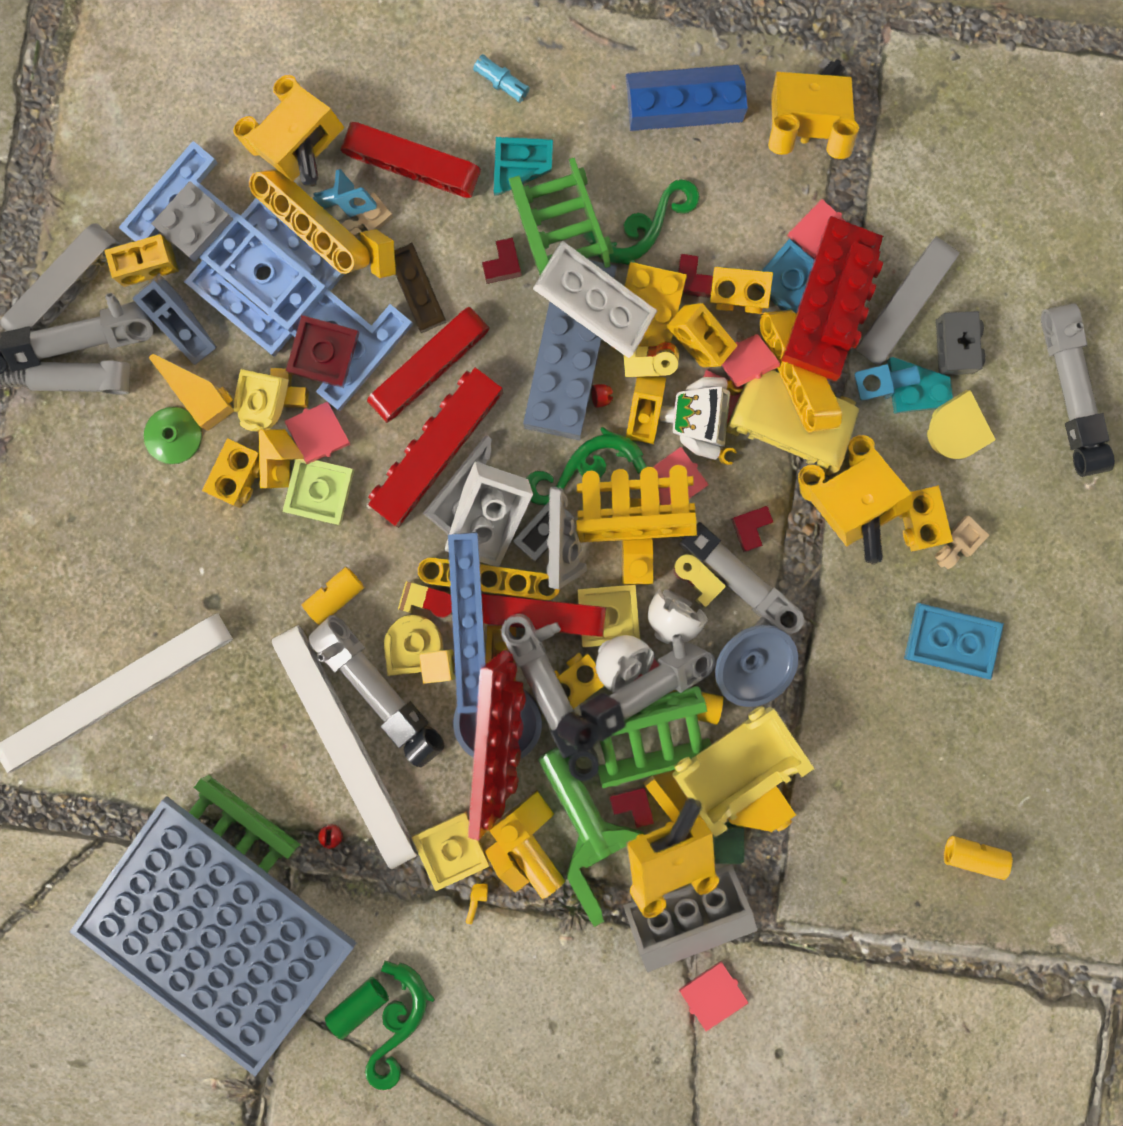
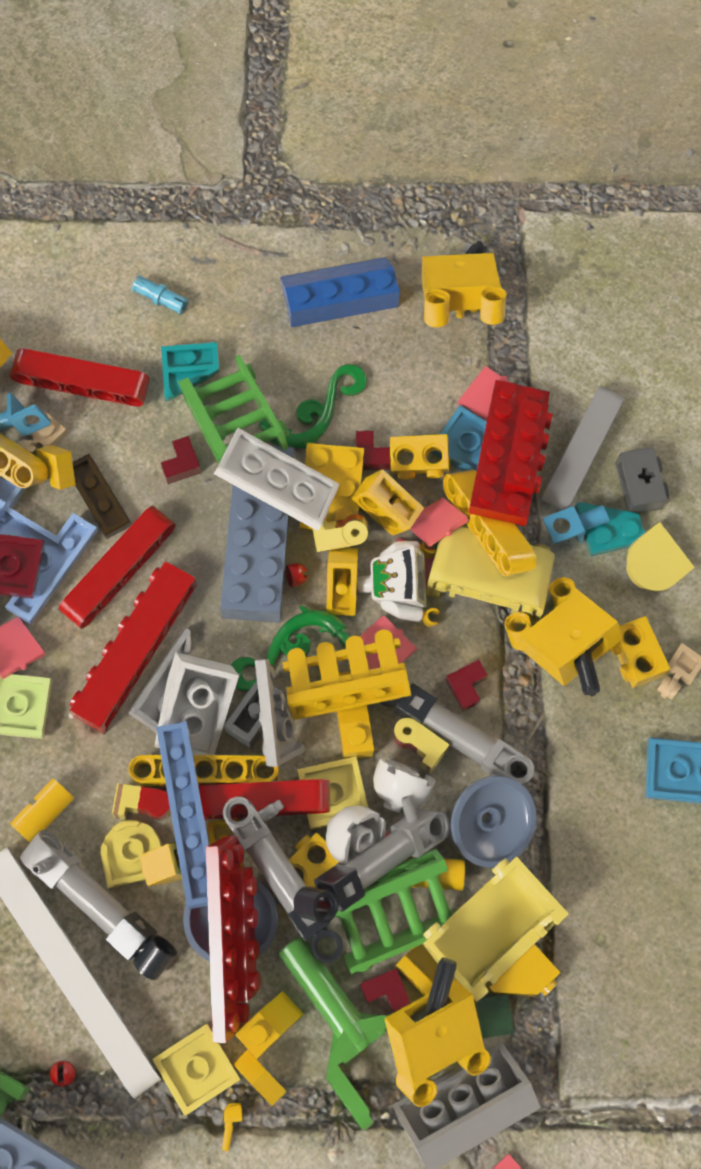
camera: 10 degrees left, 15 degrees down
(537, 867) = (291, 1071): yellow pin -> none

